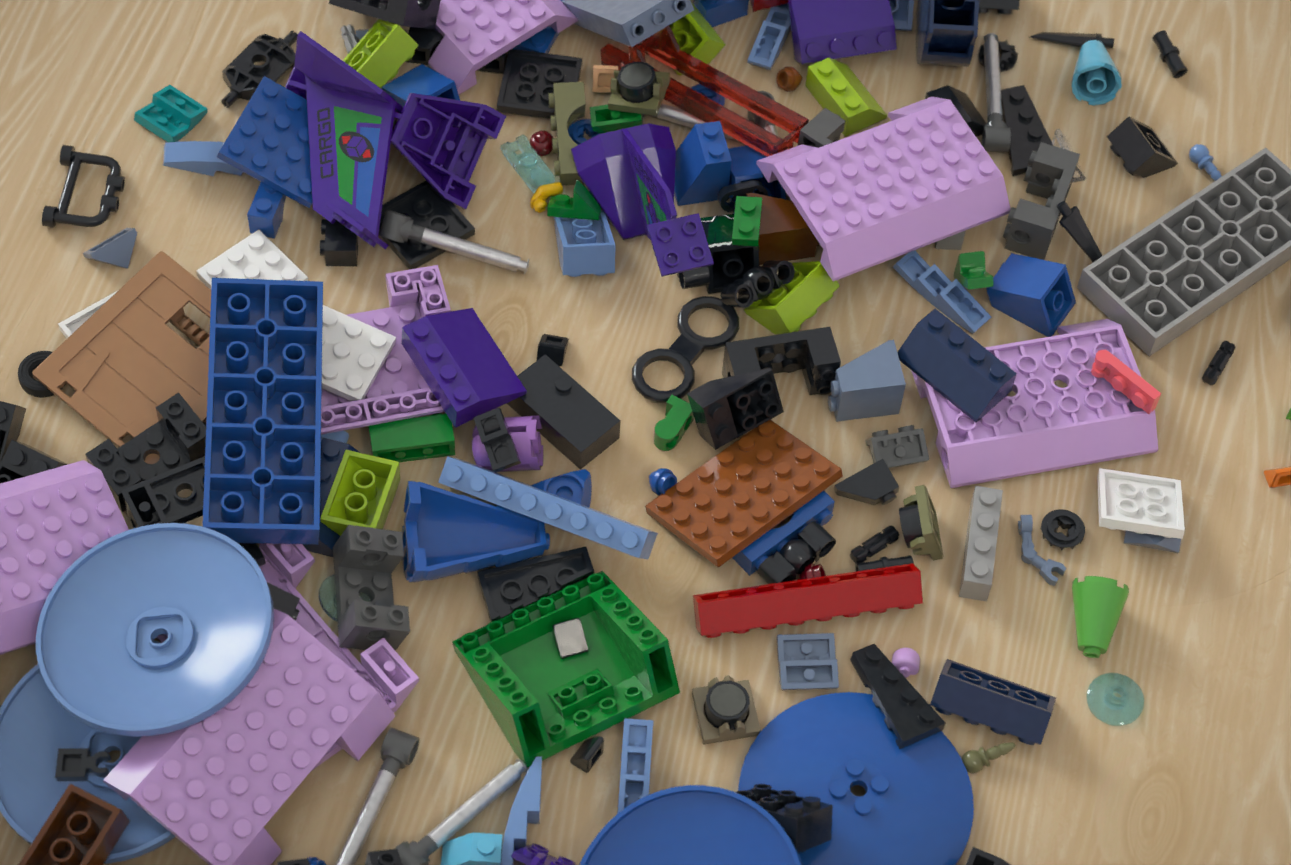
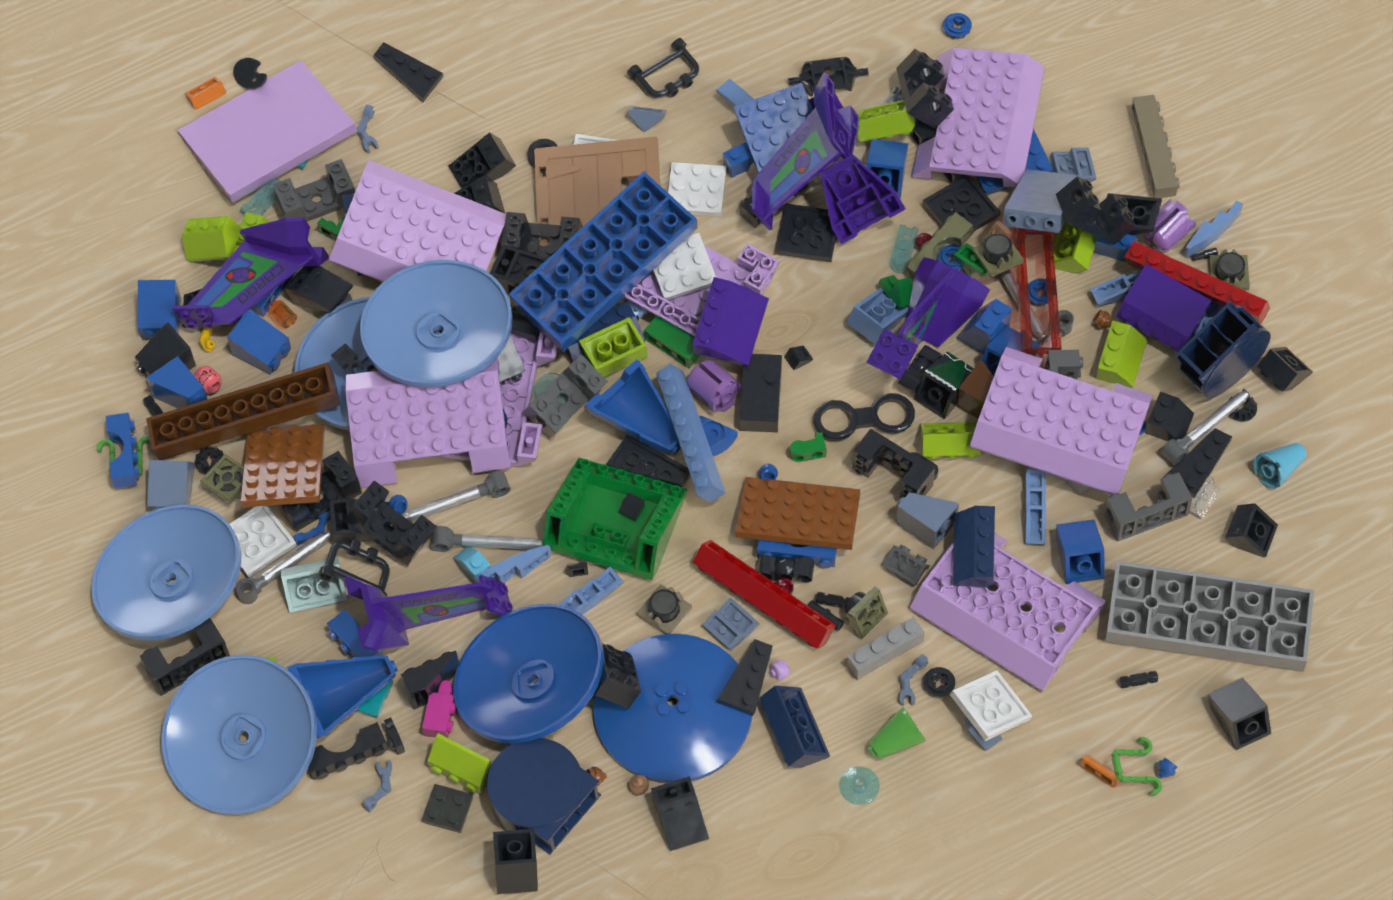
camera: 55 degrees right, 5 degrees up
(170, 114) = (755, 65): teal slope -> none
(401, 228) = (787, 225): flat silver piece -> none
(497, 440) = (700, 379): black slope -> none
(542, 193) = (889, 270): yellow arm -> none
(734, 405) = (841, 465): black slope -> none
(739, 189) = (988, 358): black beam -> none
(747, 221) = (959, 374): green plate -> none
(747, 286) = (945, 413): black piece -> none
(870, 485) = (866, 568): black slope -> none
(971, 271) = (1058, 511): green slope -> none
(975, 760) = (754, 746): olive bar -> none
(1074, 39) = (1301, 437): black bar -> none
(1078, 230) = (1141, 535): black bar -> none
(1125, 380) = (1053, 635): coral plate -> none
(1170, 54) = (1344, 493): black pin -> none
(1200, 155) = (1282, 563): medium blue bar -> none

